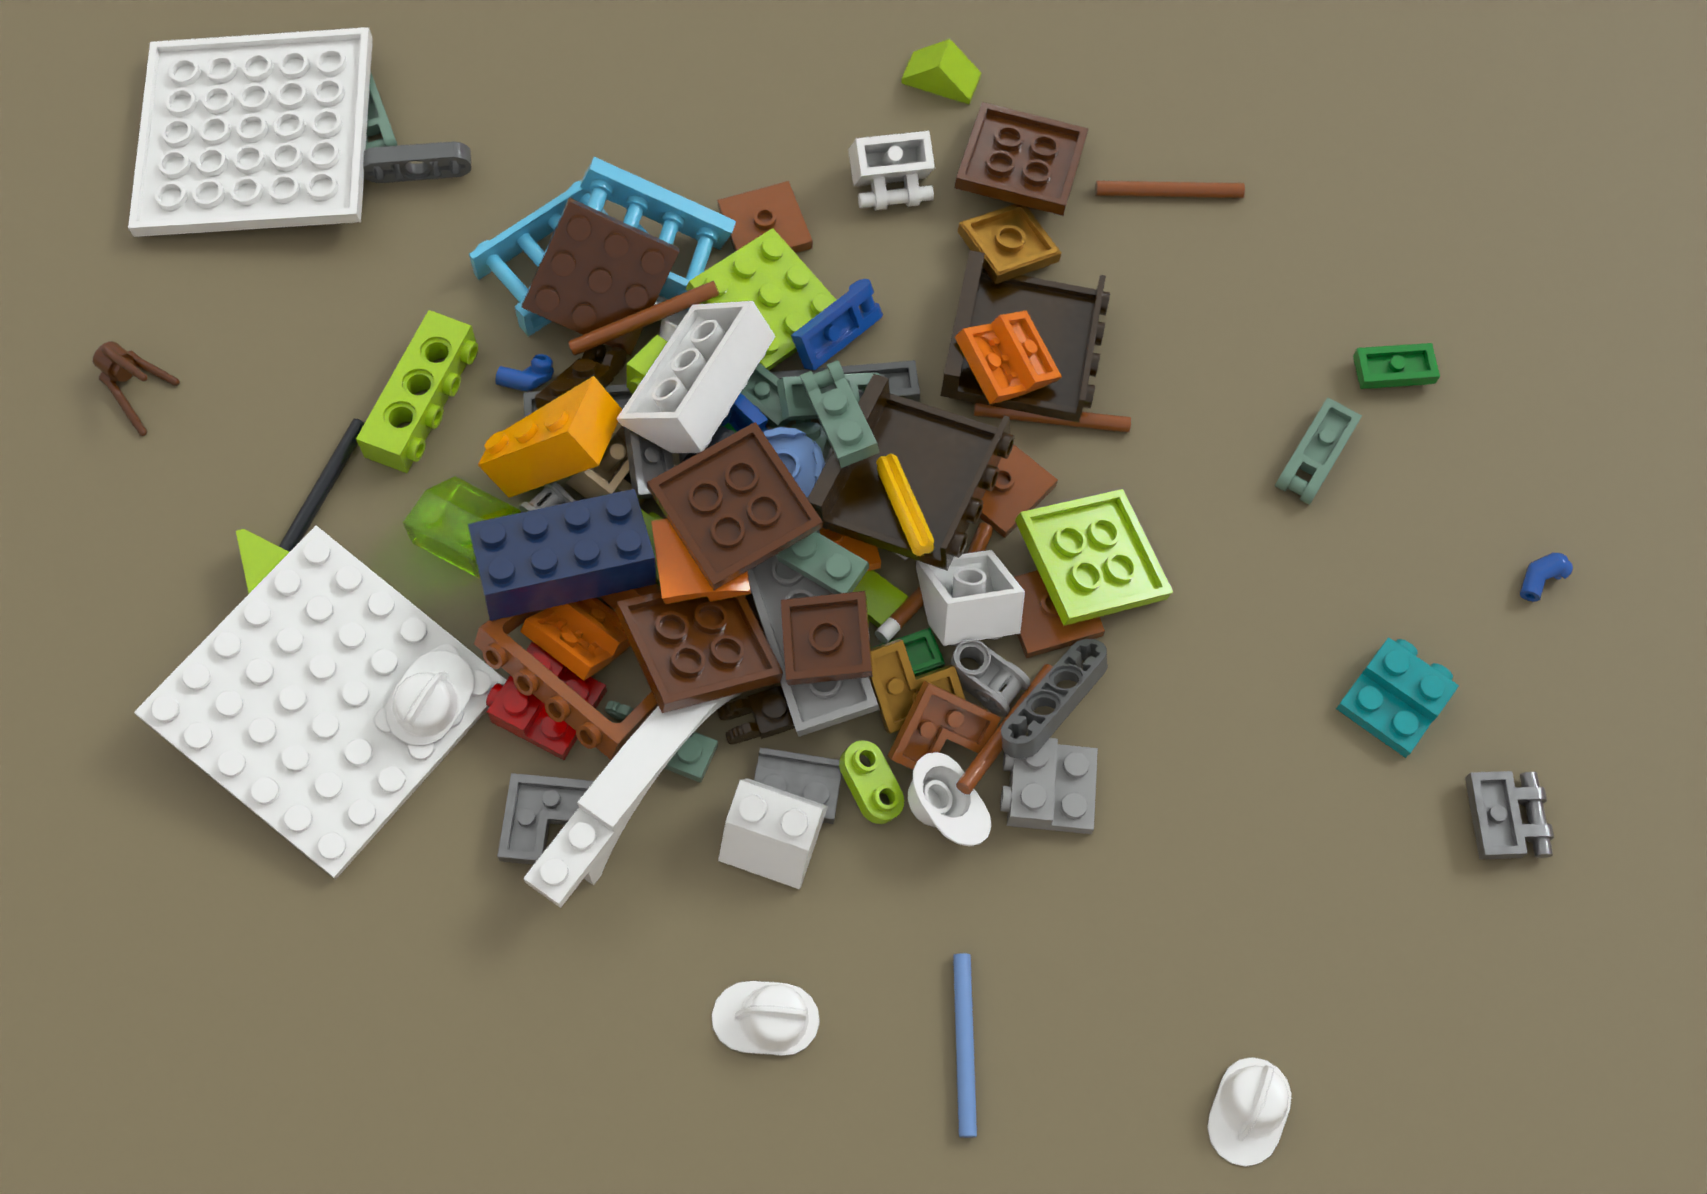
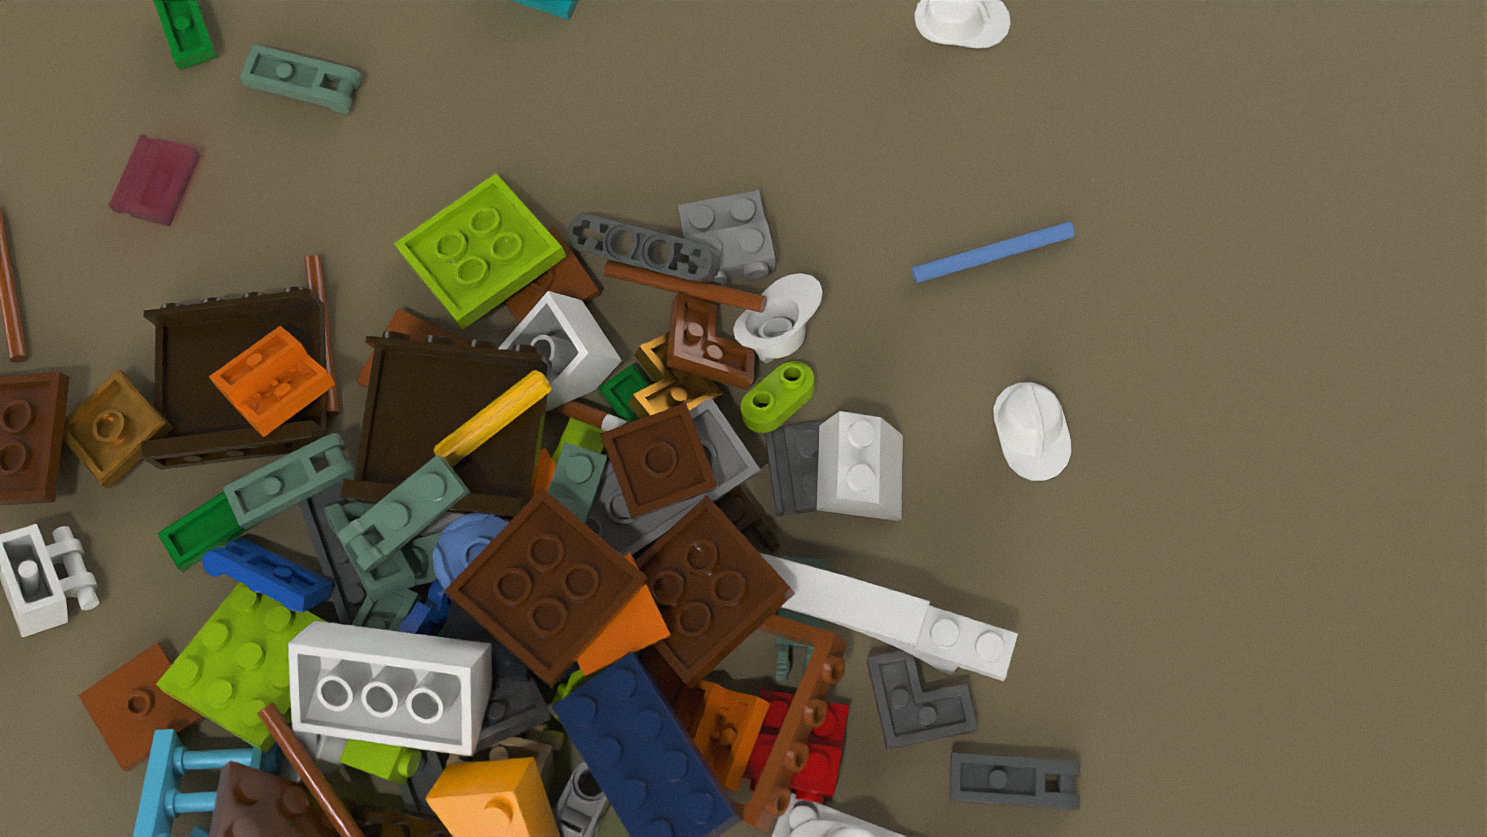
camera: 100 degrees left, 5 degrees up
(441, 876) = (1012, 781): none -> dark grey plate
(900, 297) = (201, 531): none -> green tile
(914, 352) = (288, 481): none -> sand green plate
(990, 677) = (637, 313): light grey piece -> none
(1239, 314) = (155, 180): none -> clear pink plate

